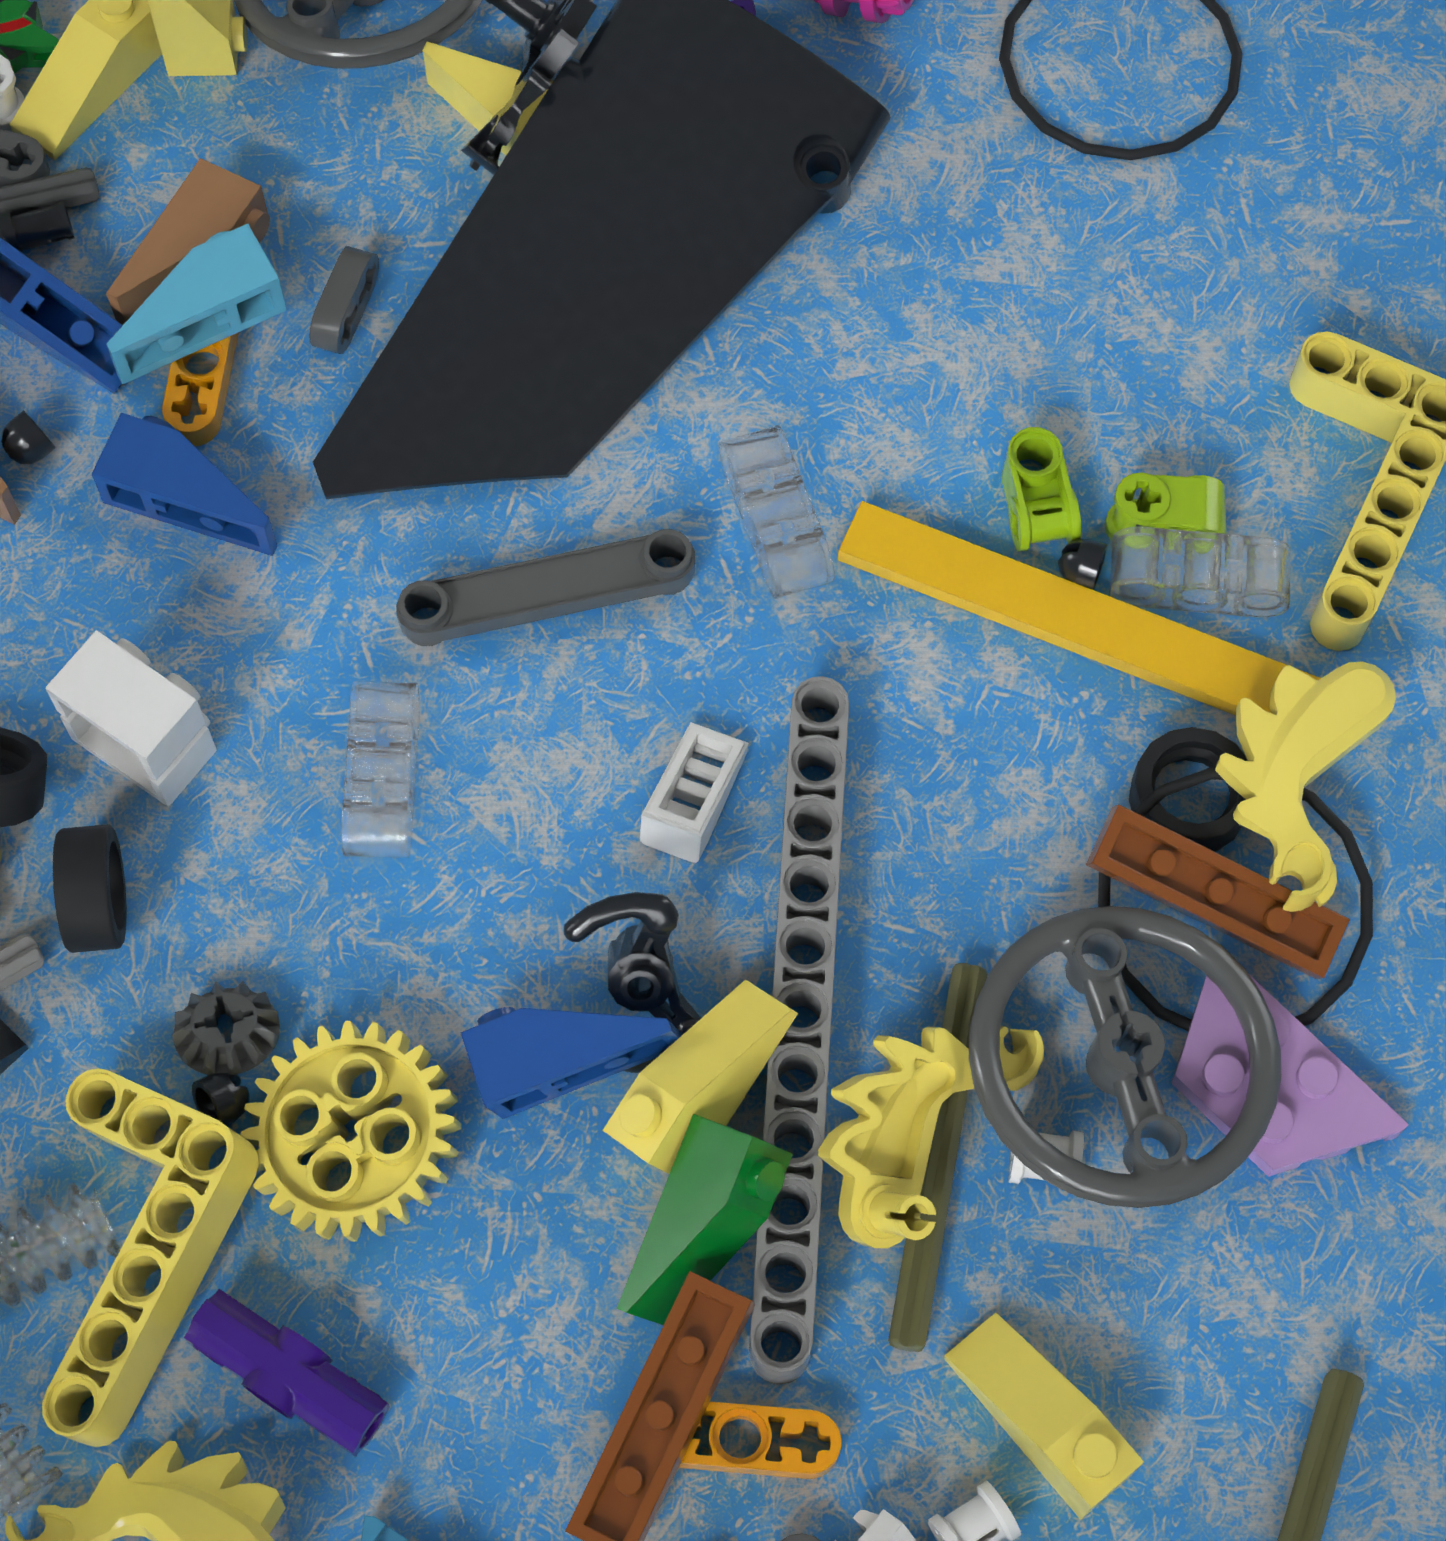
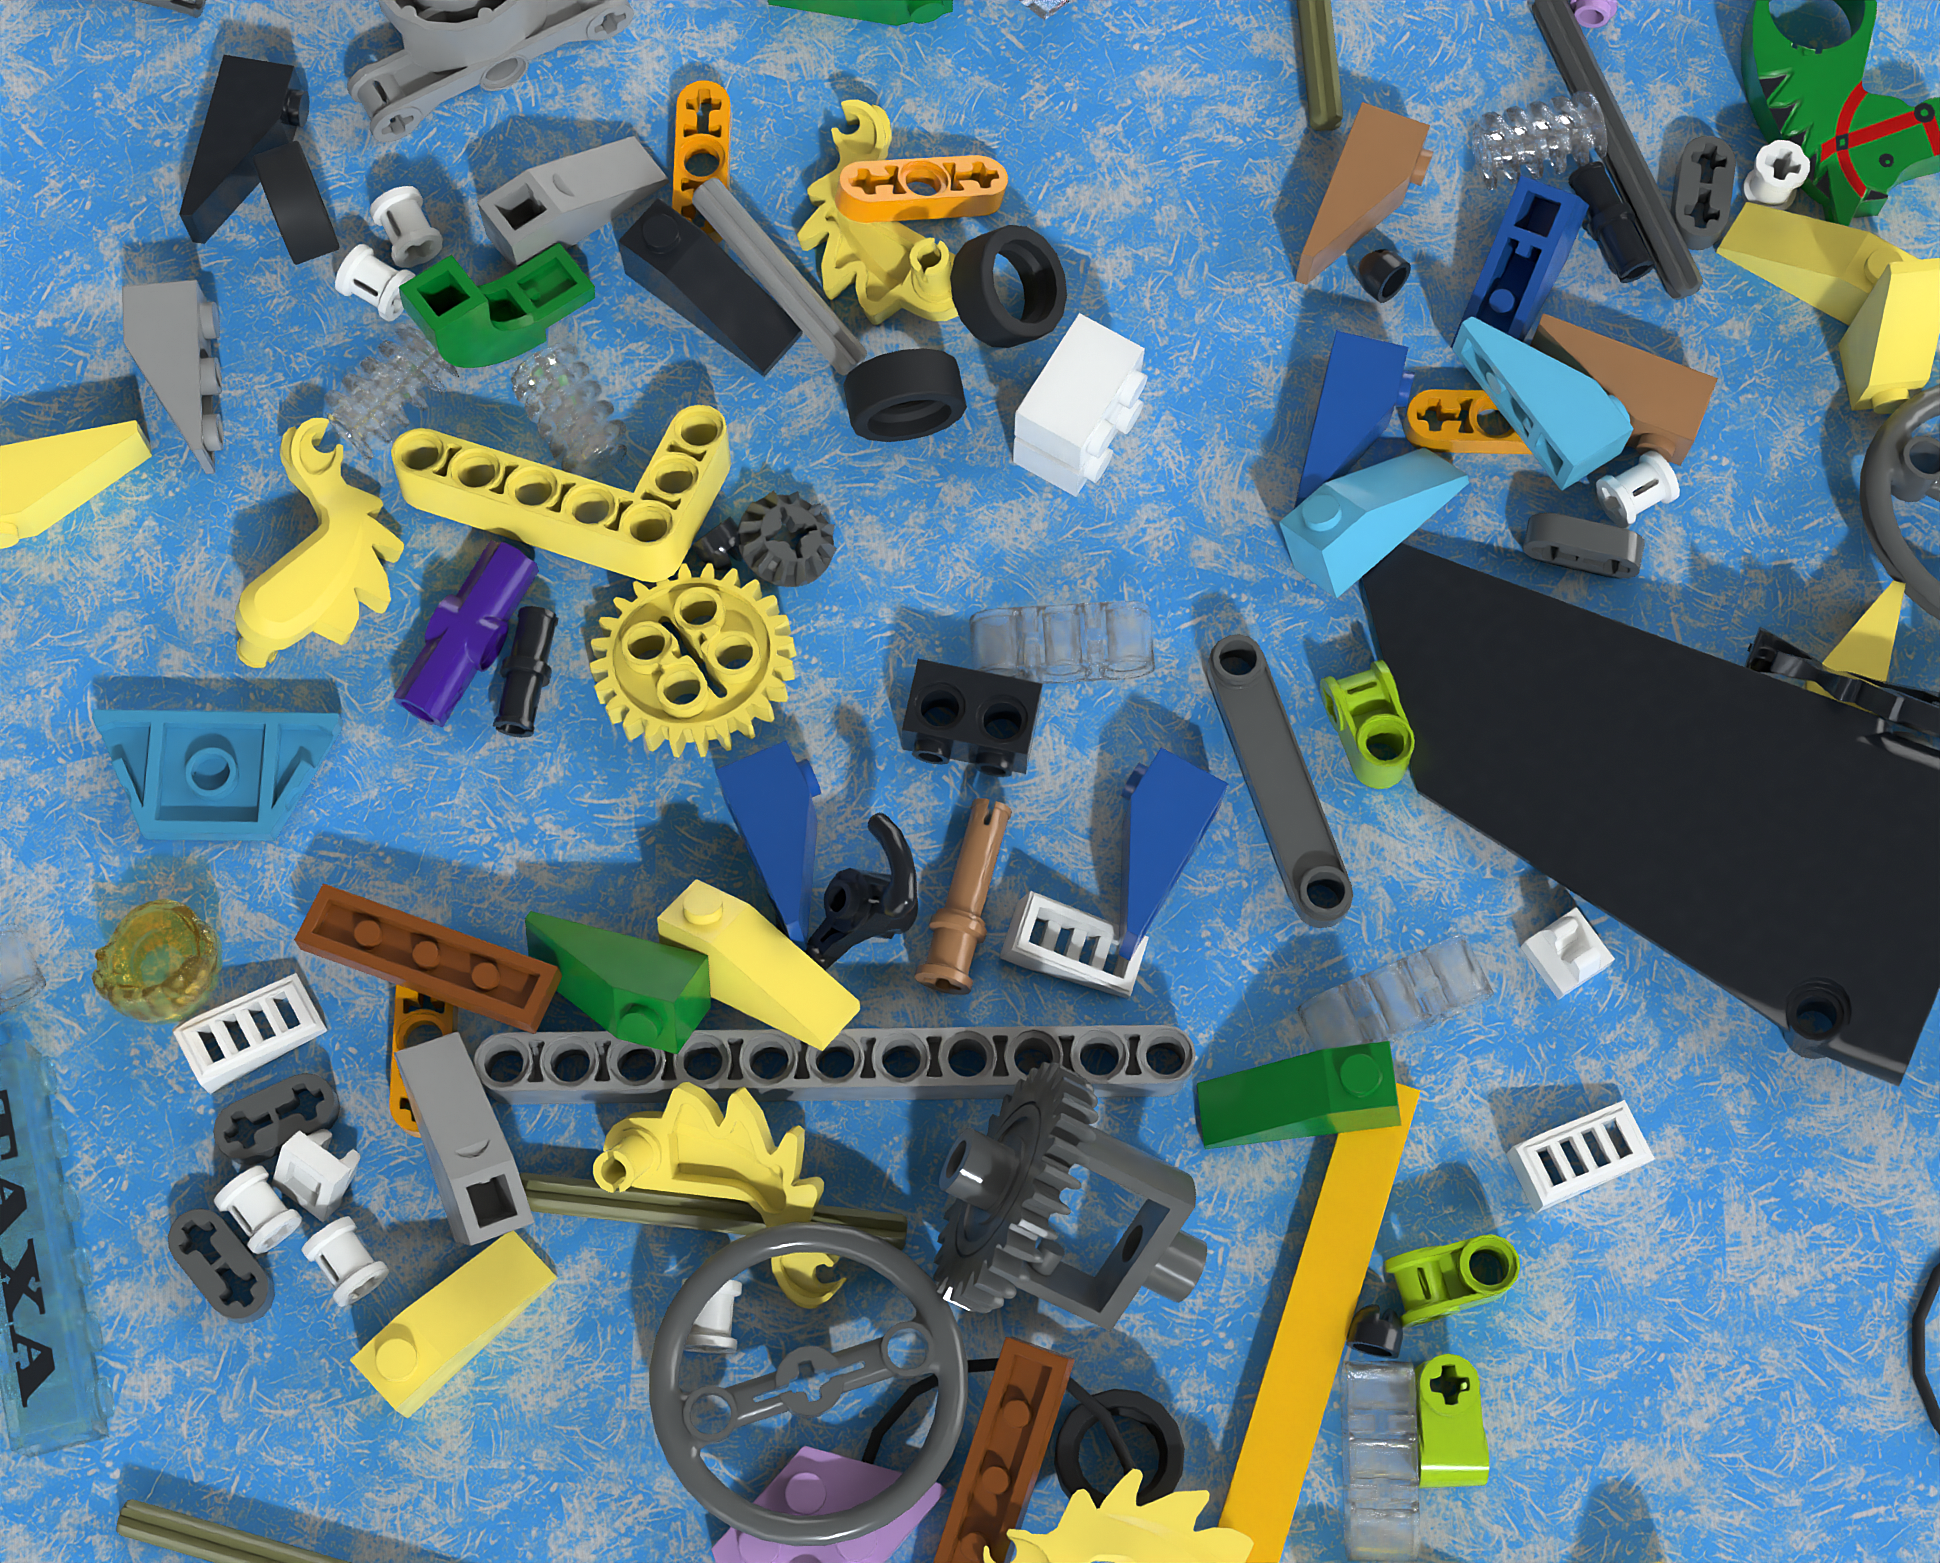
camera: 85 degrees right, 5 degrees up
(289, 476) = (1366, 515): none -> medium azure slope
(294, 248) = (1657, 485): none -> white bush
(338, 1310) = (525, 671): none -> black pin
(437, 857) = (976, 701): none -> black brick
(496, 500) = (1368, 712): none -> lime piece
(602, 695) = (1161, 829): none -> blue slope
(694, 898) = (959, 924): none -> medium nougat pin
(738, 368) = (1567, 953): none -> white tile
(867, 594) = (1302, 1097): none -> green slope
(867, 1385) = (463, 1141): none -> light grey slope
(941, 420) = (1534, 1177): none -> white slope
(966, 827) = (1012, 1185): none -> dark grey piece

